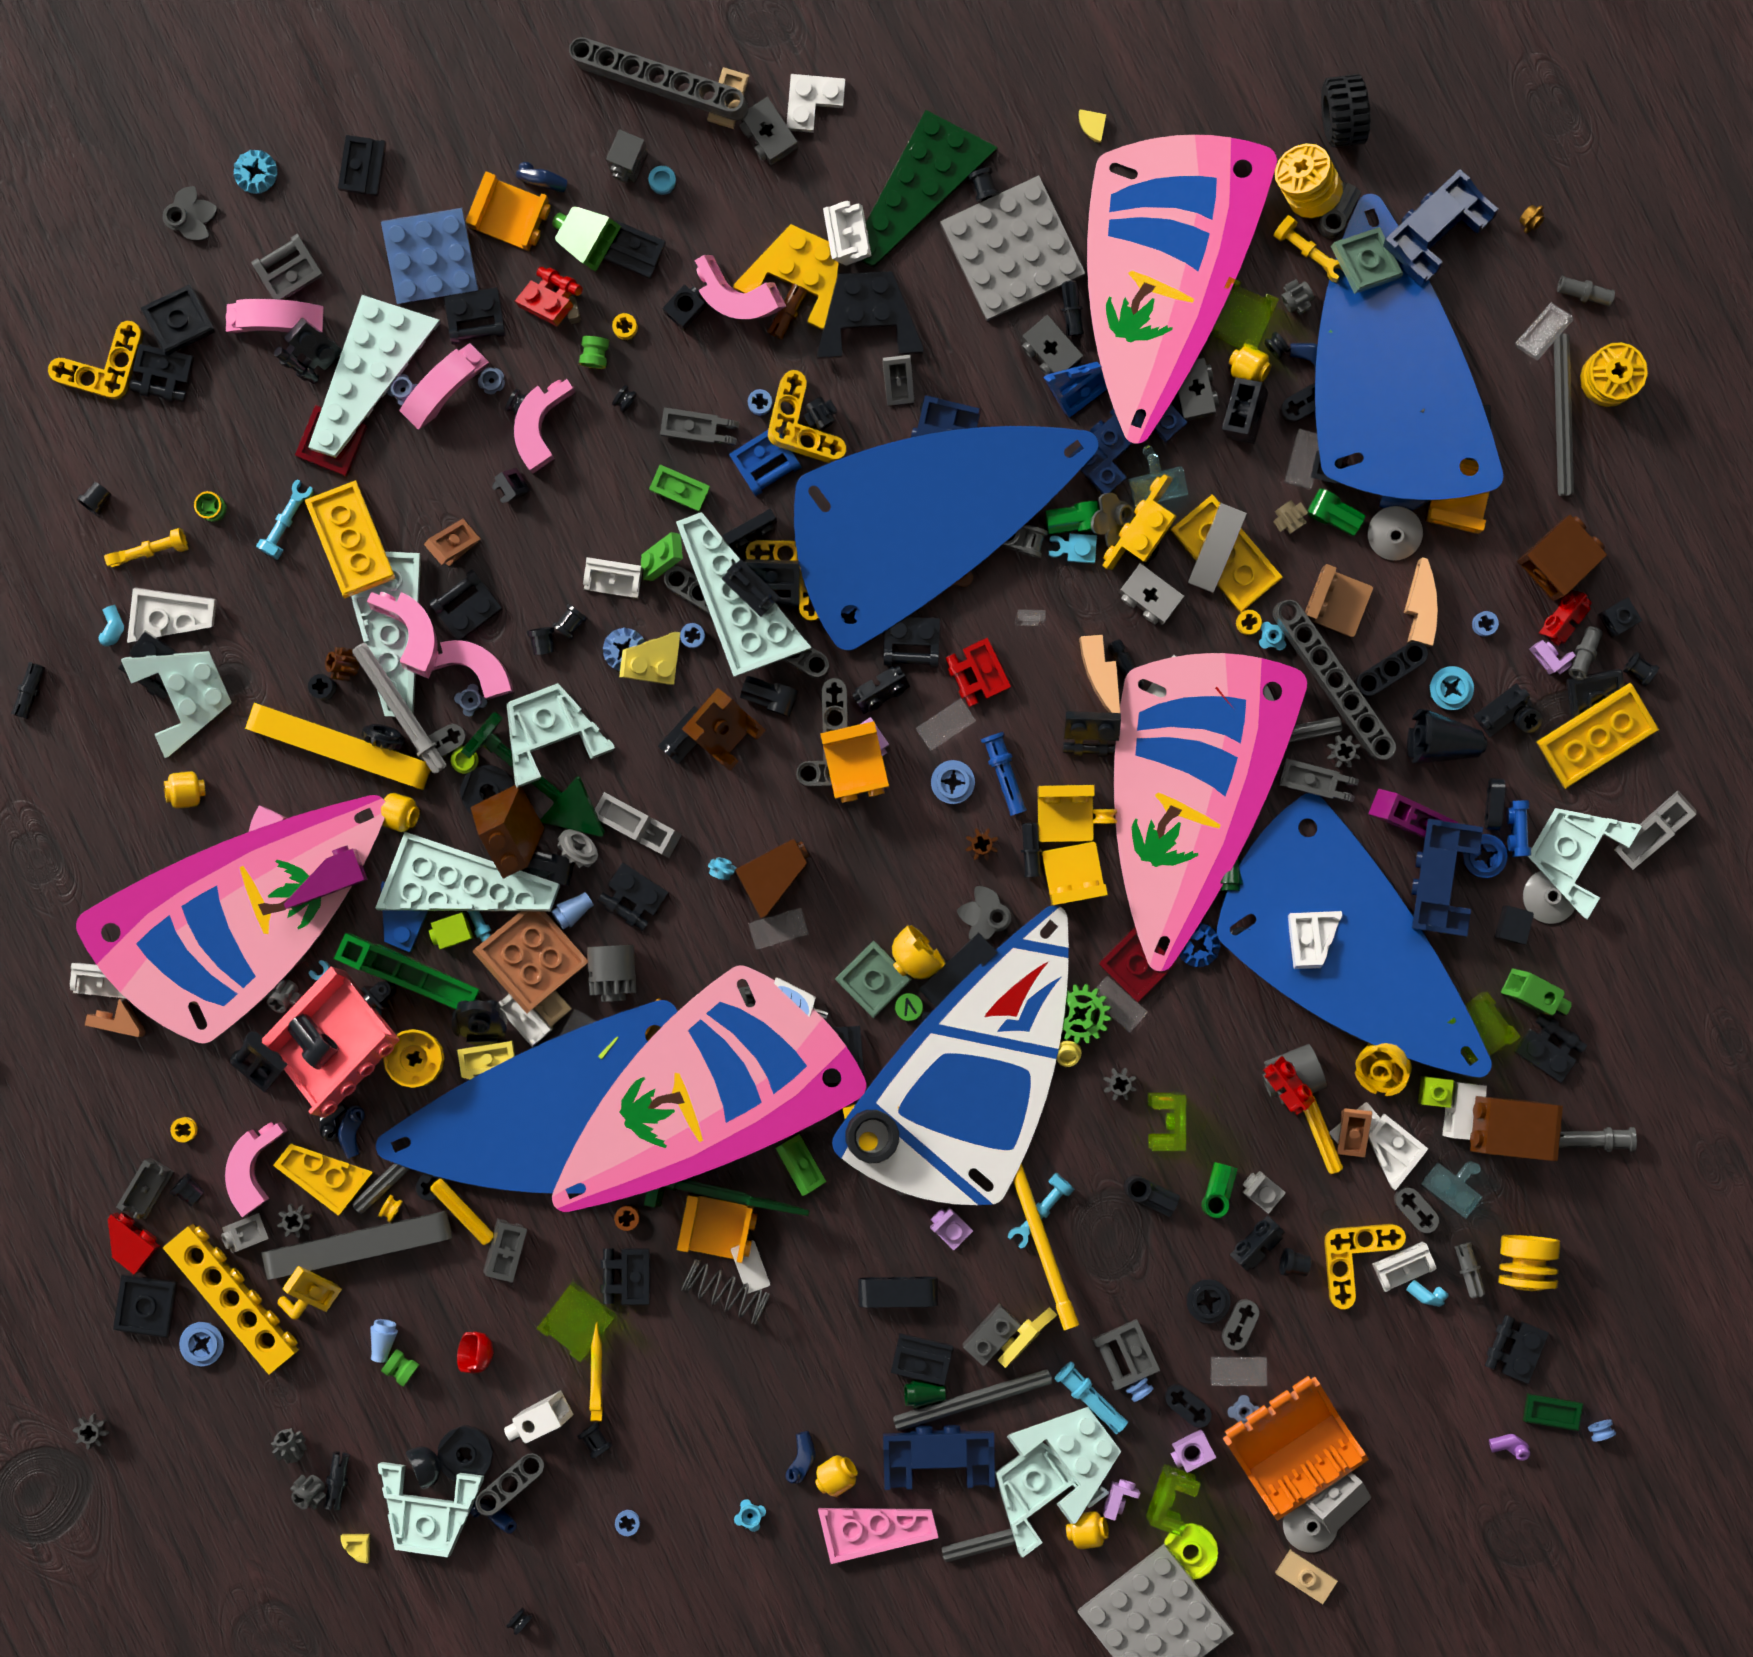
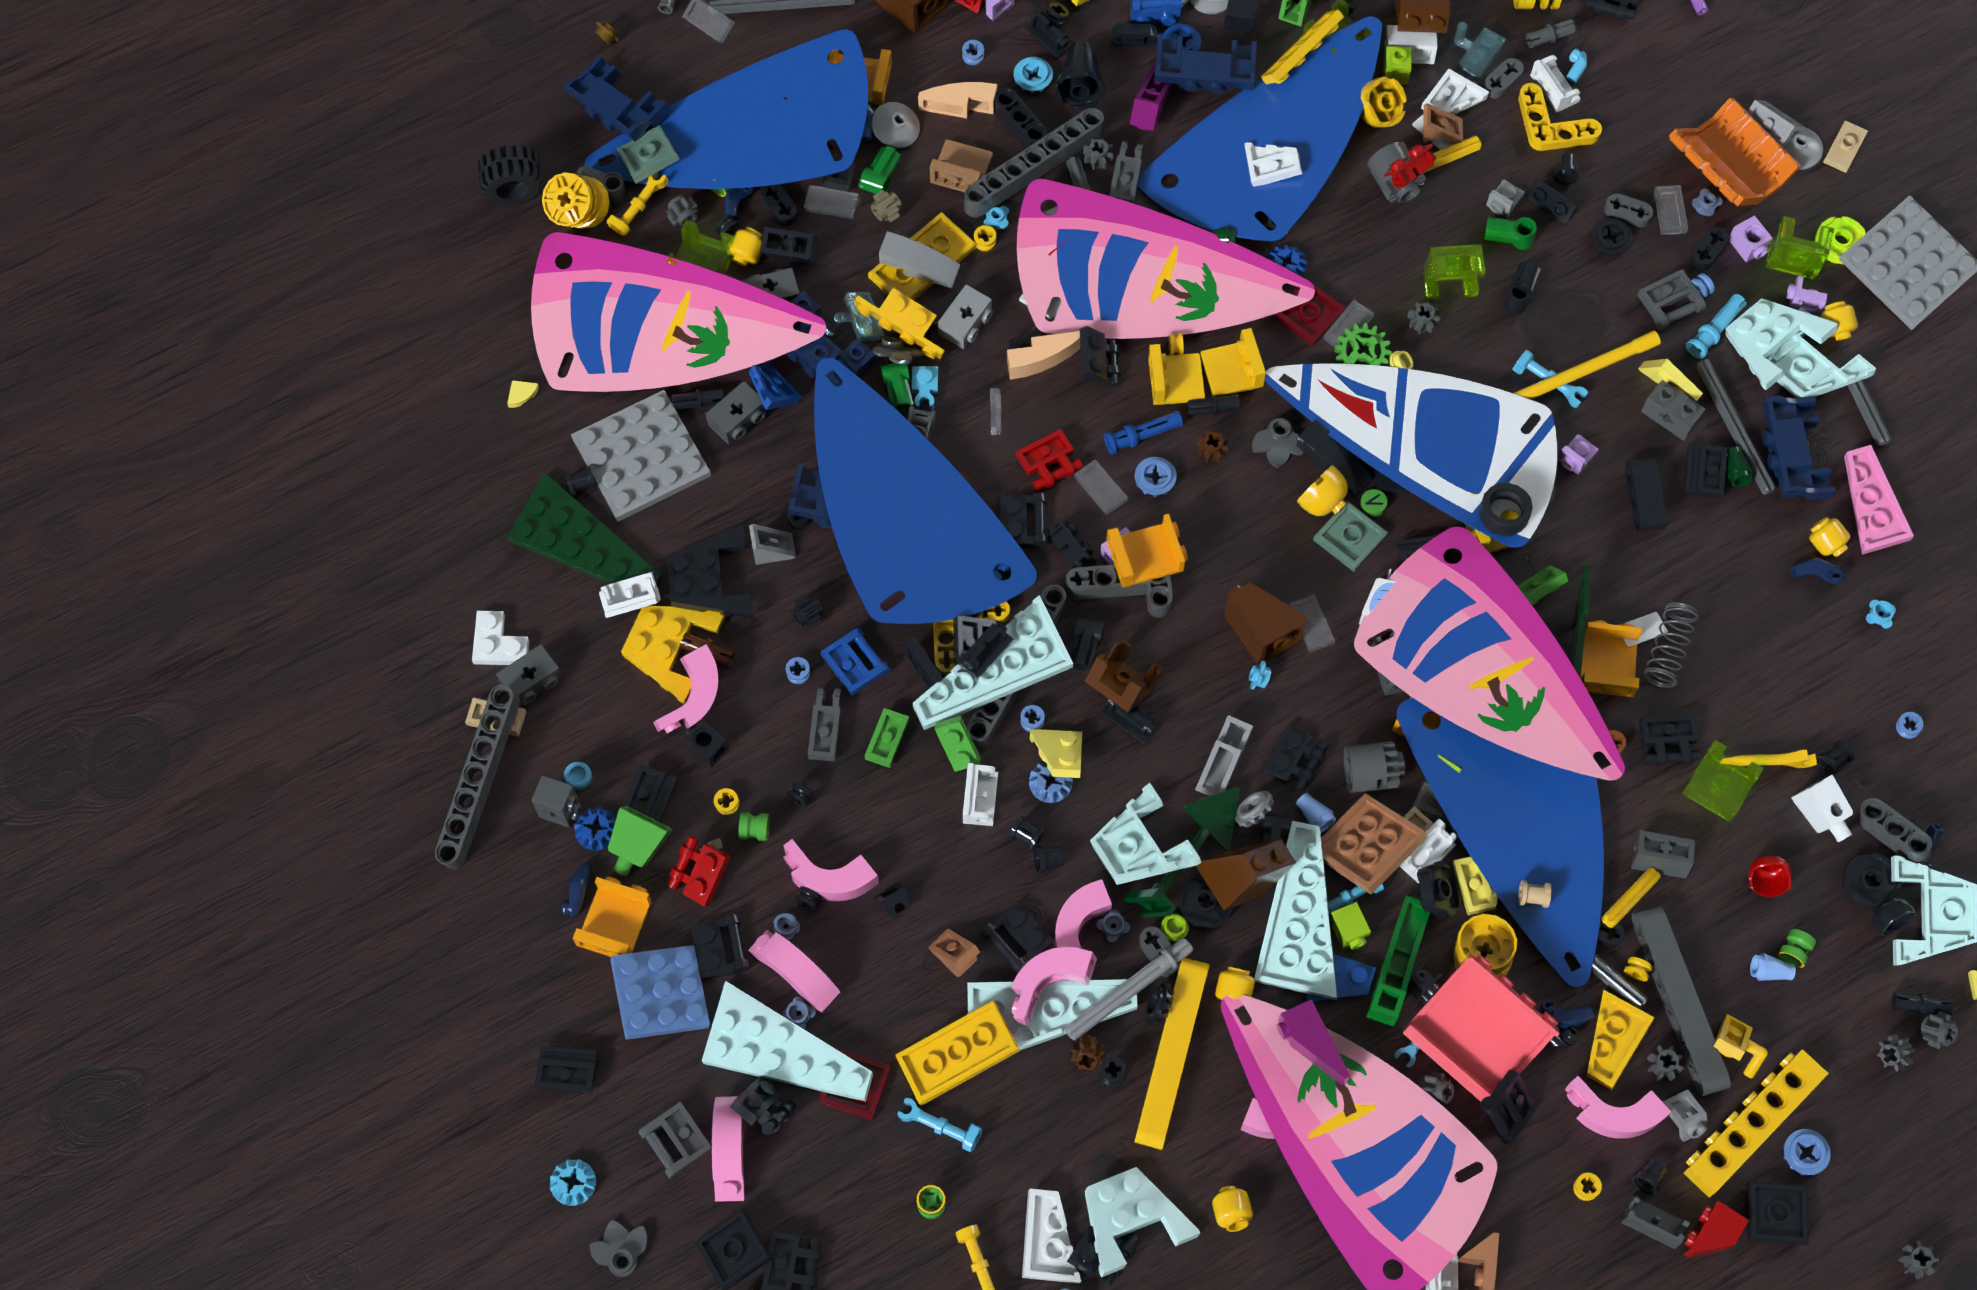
camera: 90 degrees left, 20 degrees down
(316, 1045) = (1486, 1042): black piece -> none
(464, 1114) = (1534, 894): none -> tan bush
(615, 189) = (585, 835): none -> blue gear
(793, 430) = (824, 633): yellow beam -> none
(1448, 979) = (1308, 42): none -> yellow plate

